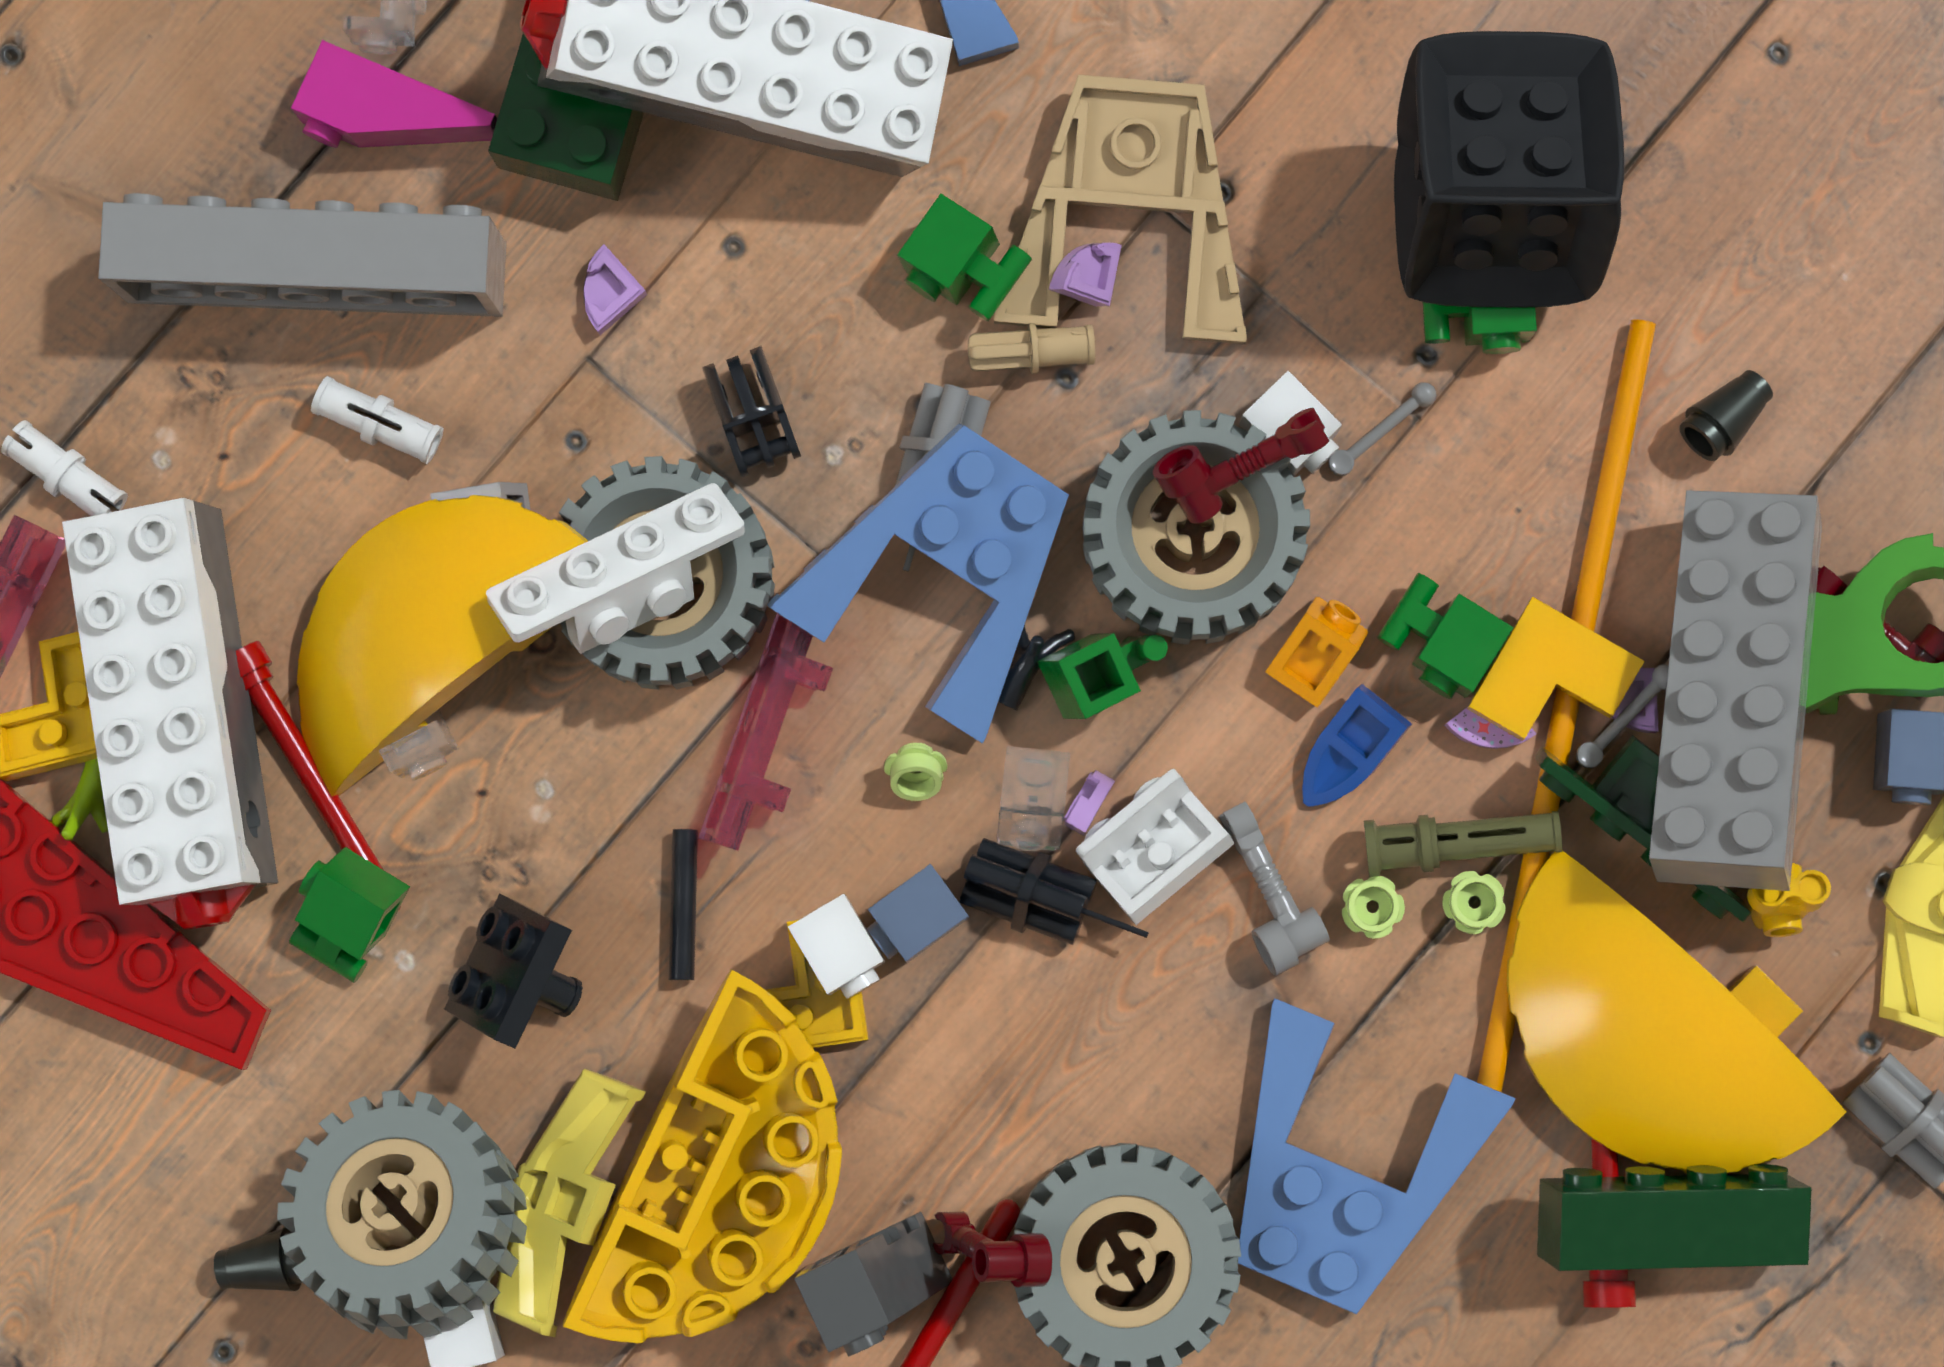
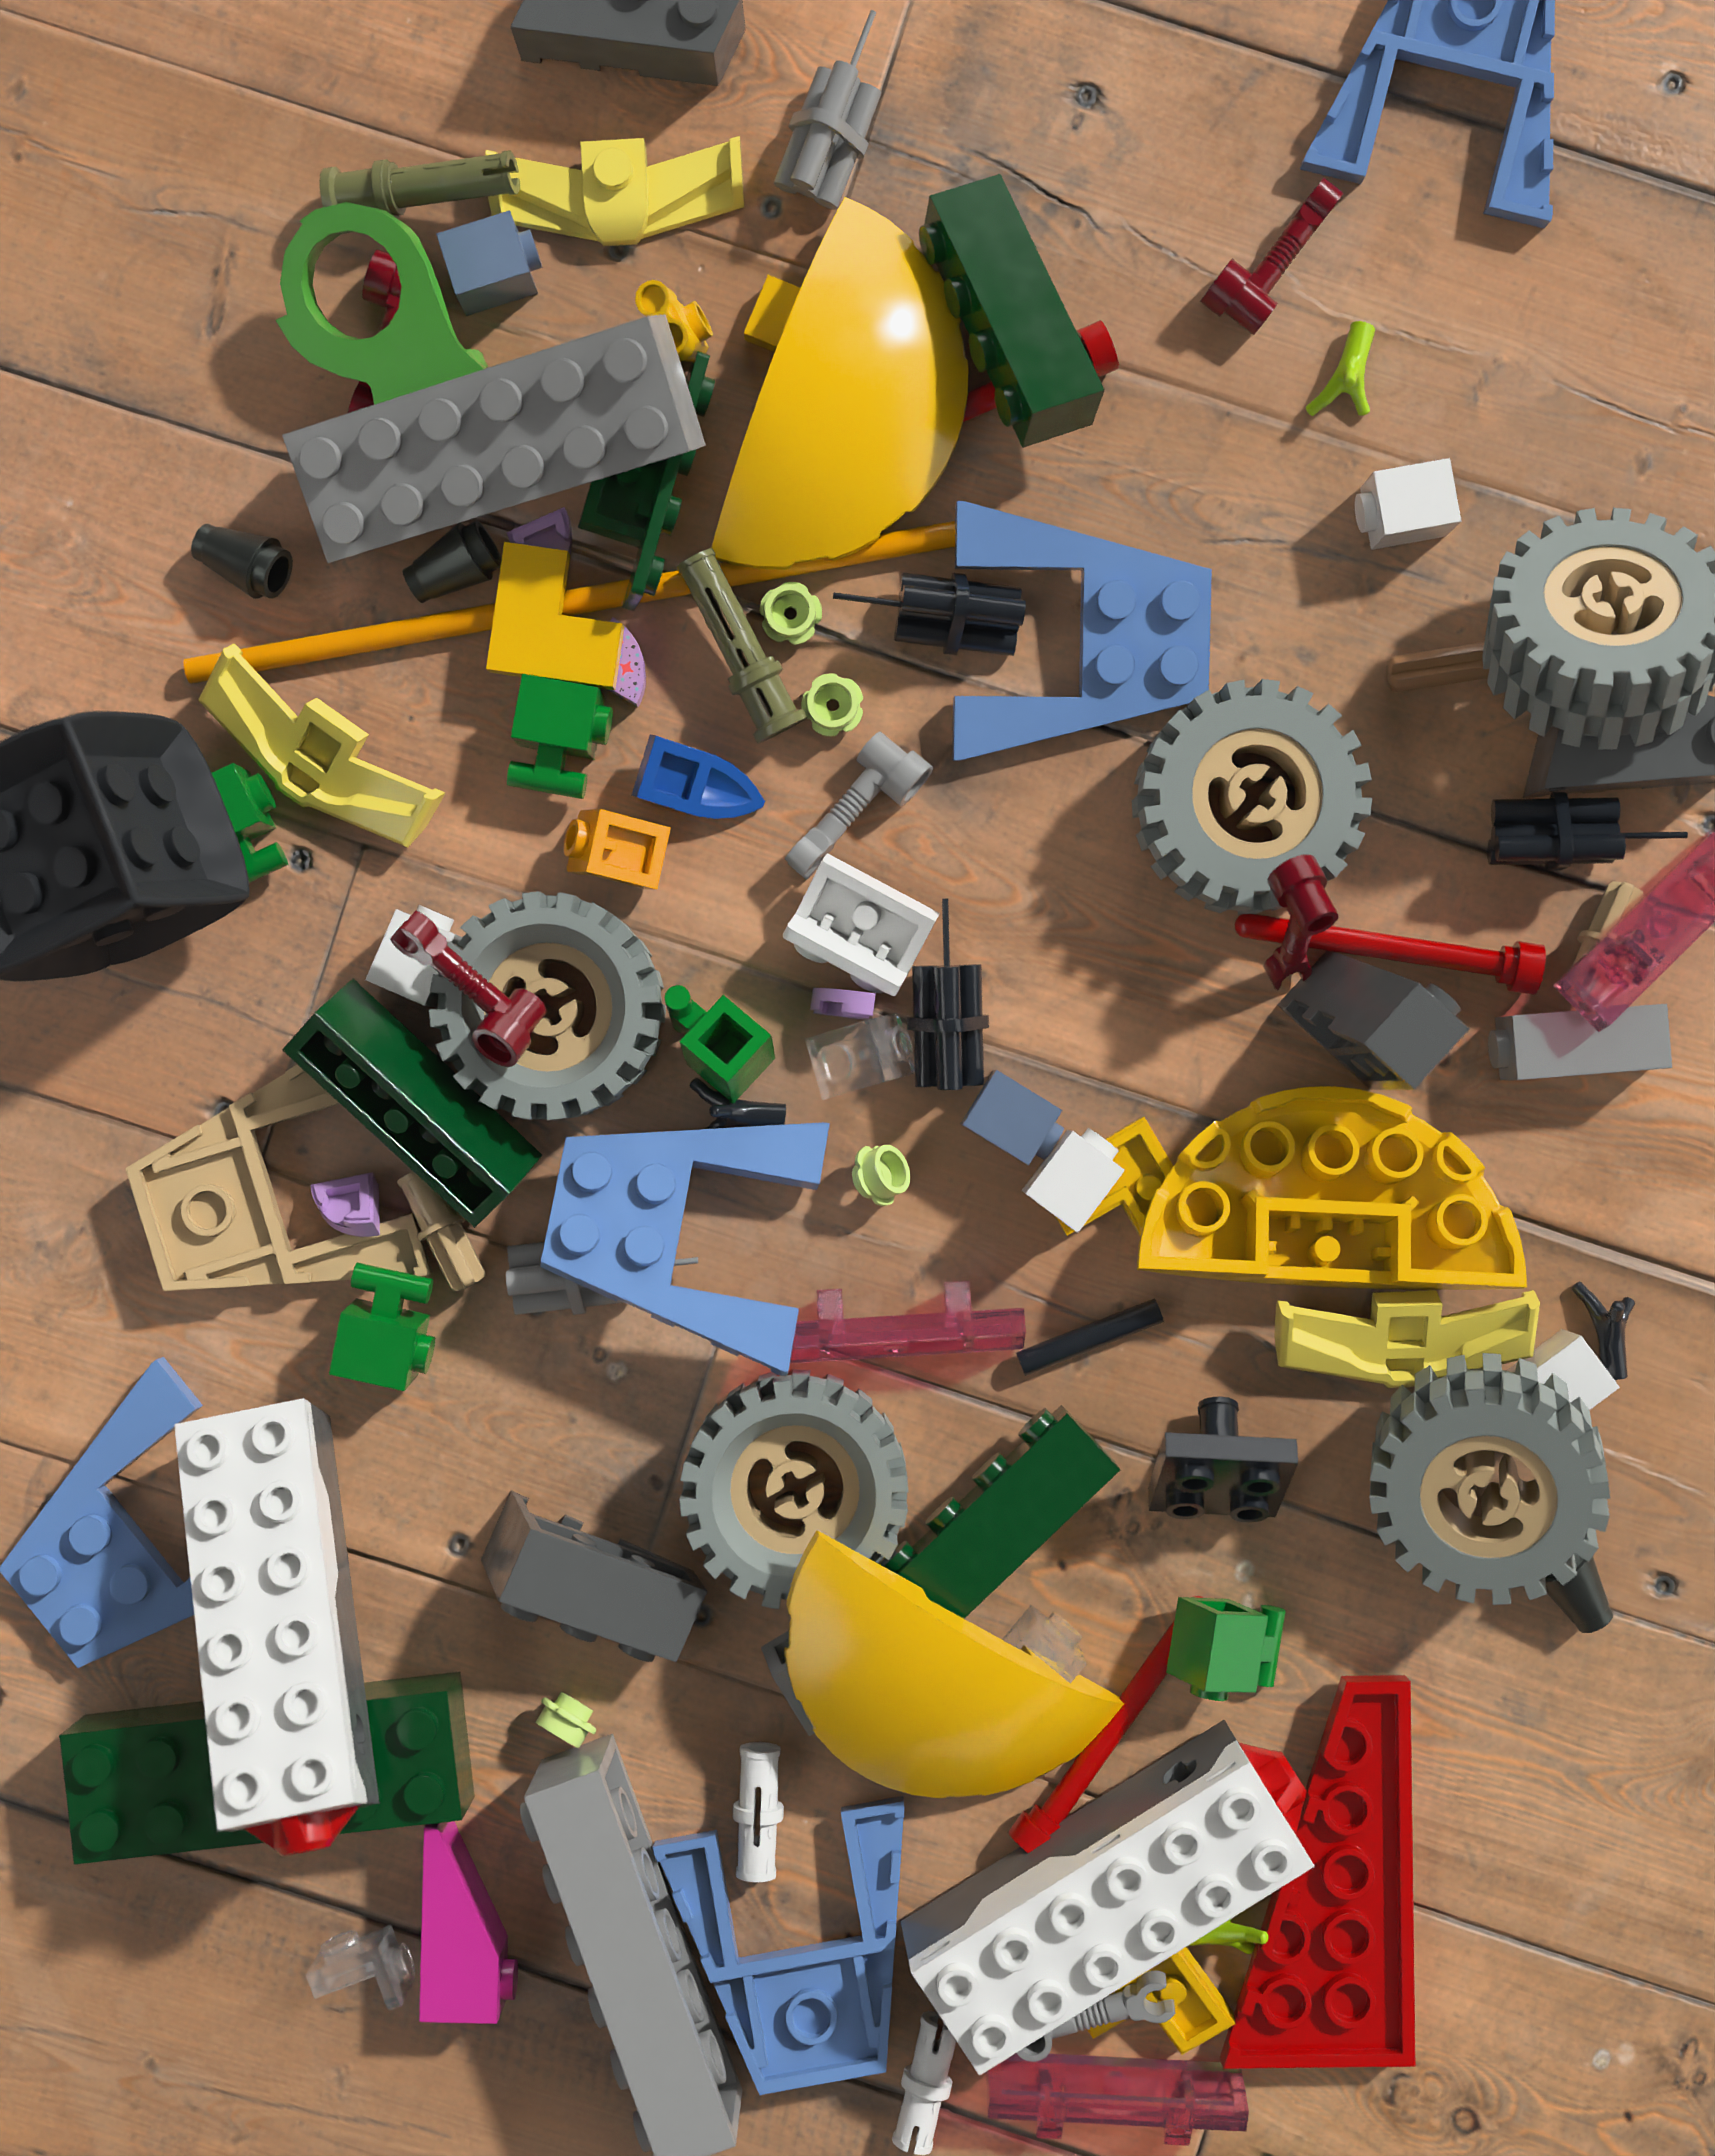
camera: 115 degrees left, 5 degrees up
(62, 669) = (1113, 2008): none -> light grey brick
(179, 393) = (809, 2008): none -> medium blue wing
(535, 280) = (566, 1719): none -> yellowish green plate
(554, 760) = (1006, 1514): none -> dark green brick
(609, 290) = (545, 1648): lavender tile -> none
(620, 575) = (817, 1529): white bracket -> none
(650, 352) = (590, 1583): none -> dark grey wedge
(754, 418) = (612, 1461): black arm -> none
(1156, 368) = (412, 1102): none -> dark green brick
(1343, 461) = (430, 897): light grey hinge -> none
(1413, 1055) = (954, 613): none -> black piece
(1516, 407) = (314, 754): none -> light yellow plate
(1591, 753) = (610, 559): light grey hinge -> none
(1644, 607) = (453, 563): none -> pearl dark grey cone

